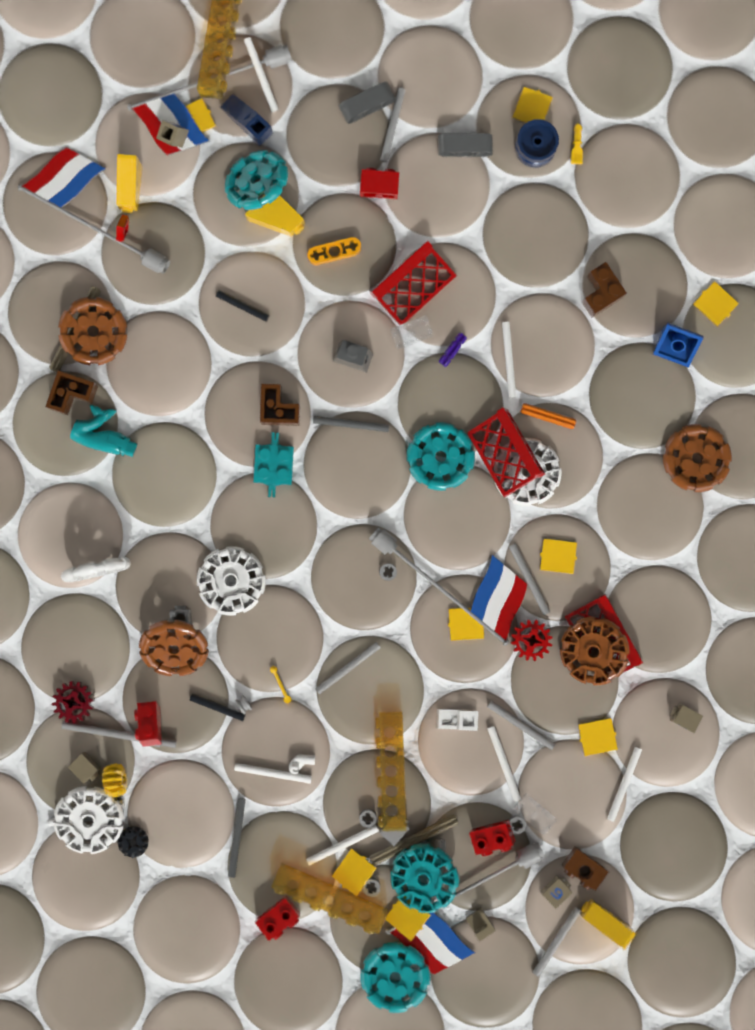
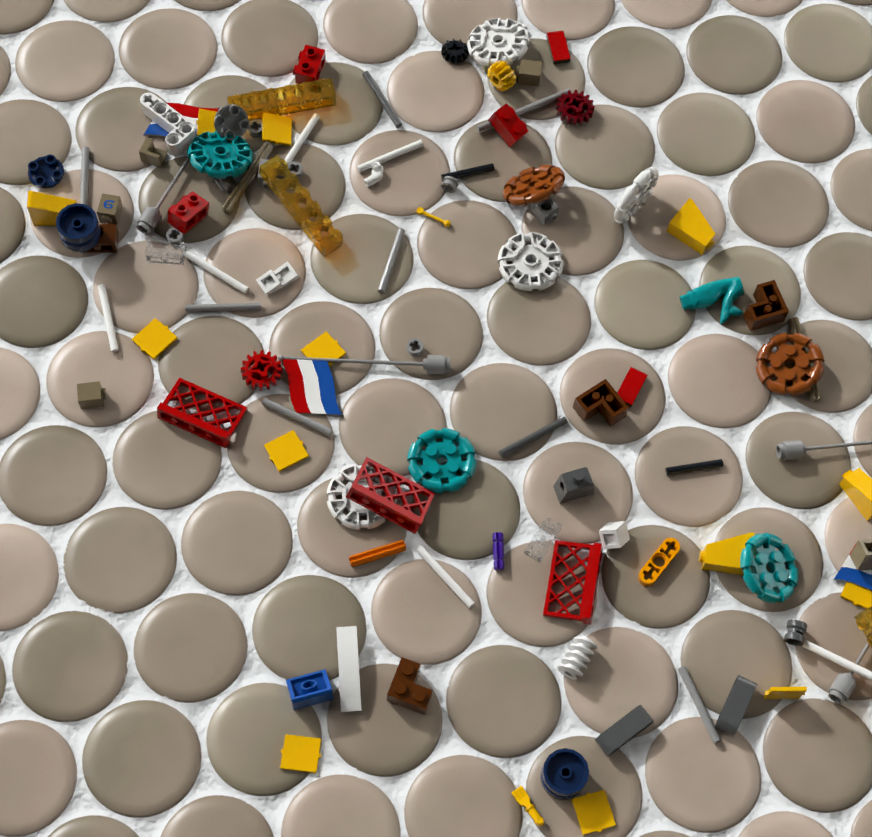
camera: 140 degrees right, 20 degrees down
(35, 778) = (558, 47): none -> red tile
(68, 511) = (692, 228): none -> yellow slope
(122, 228) = (837, 455): red tile -> none
(238, 408) = (631, 386): none -> red tile
(247, 119) = (820, 614): dark blue slope -> none
(273, 464) = (568, 364): teal plate -> none
(277, 120) = (795, 632): none -> dark grey wheel
(324, 81) = (785, 692): none -> yellow piece
(352, 295) = (614, 535): none -> white panel
(379, 183) = (668, 640): red brick -> none
(392, 905) = (231, 120): none -> light grey dish
(392, 988) = (193, 74): teal plate -> none
(447, 949) = (180, 129): none -> white beam
(457, 221) = (576, 656): none -> white piece
(586, 972) = (45, 171): none -> dark blue dish
(594, 873) = (78, 227): none -> dark blue wheel
(602, 642) = (200, 401): dark orange plate -> none
(637, 338) = (348, 668): none -> white slope
(707, 452) = (220, 595): dark orange plate -> none

